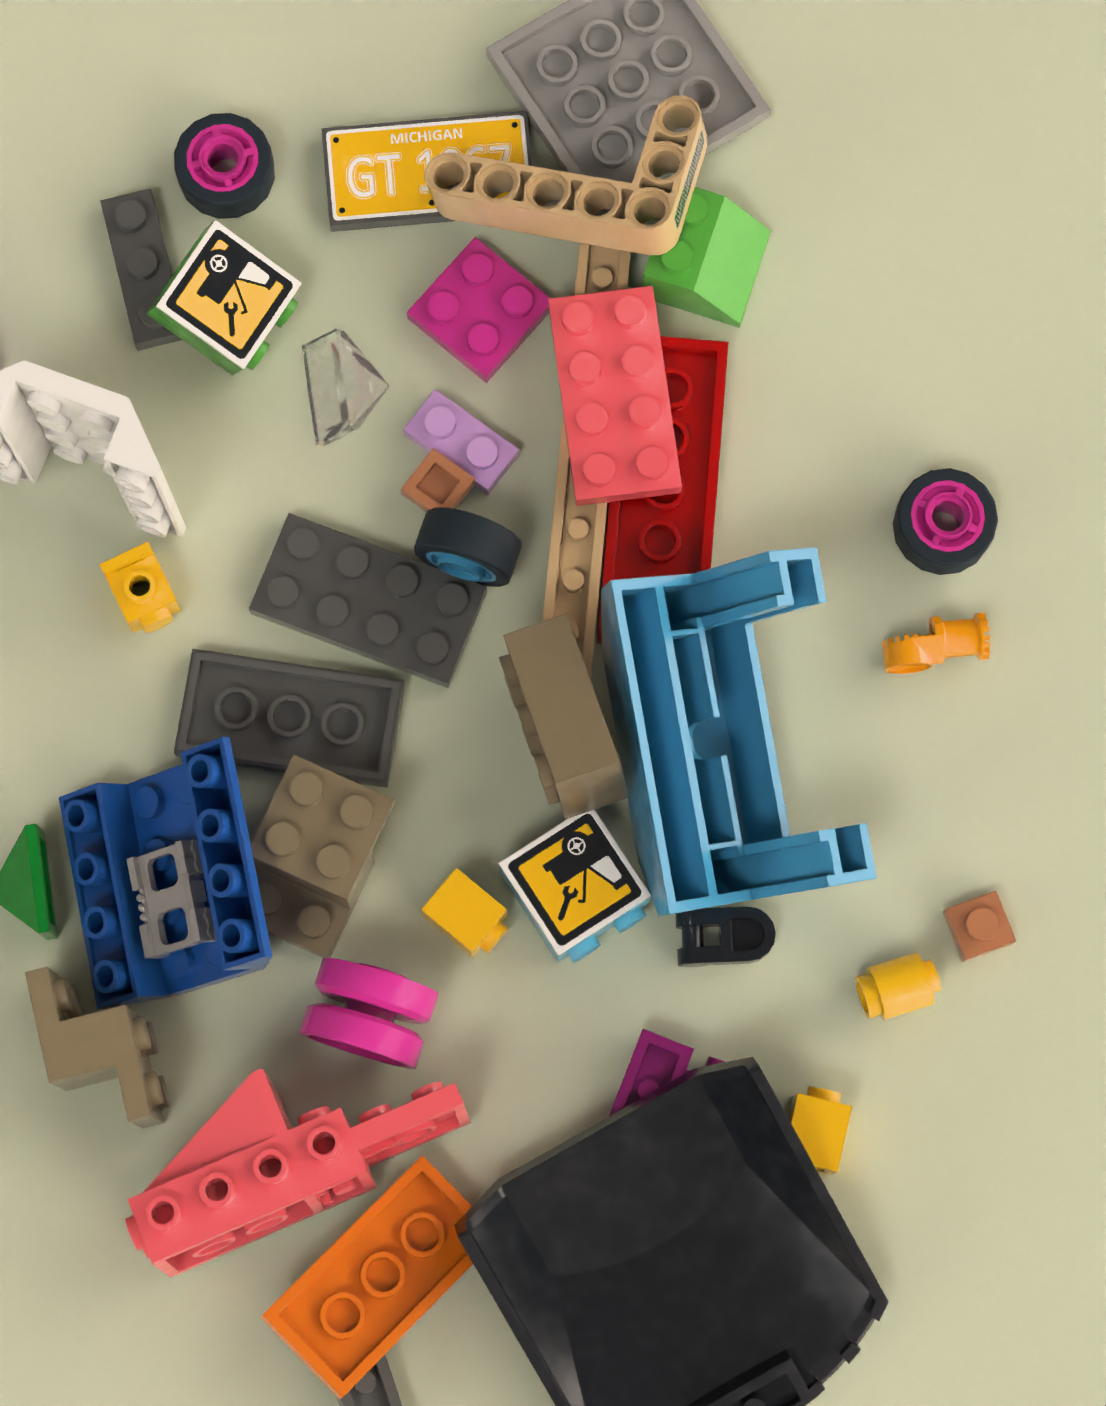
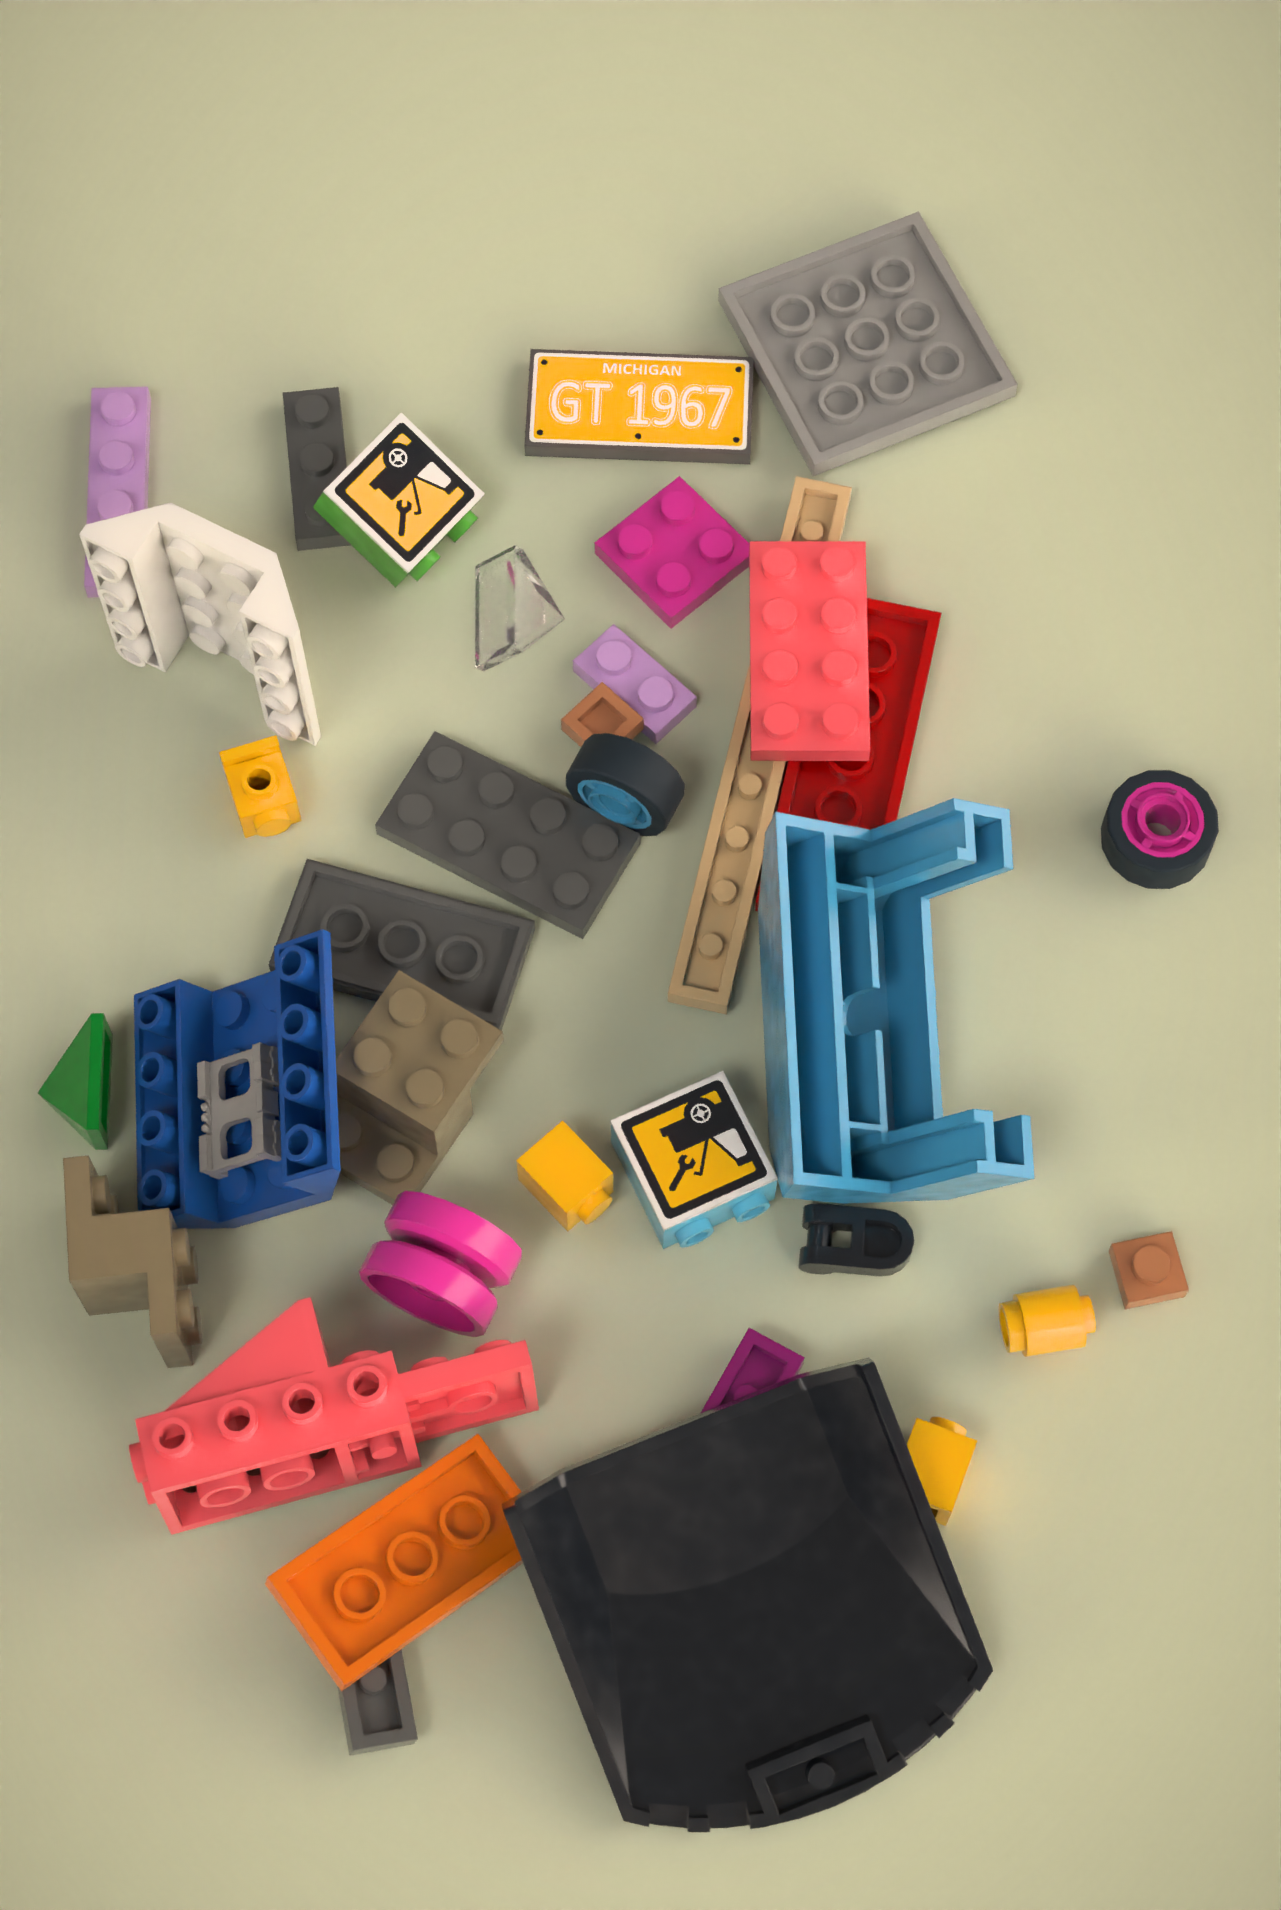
camera: 10 degrees right, 10 degrees down
(218, 139) = (414, 348): wheel -> none
(562, 717) = (703, 967): dark tan brick -> none
(583, 195) = (798, 448): tan beam -> none
(712, 261) = (927, 522): bright green slope -> none
(943, 641) = (1114, 962): light orange connector -> none

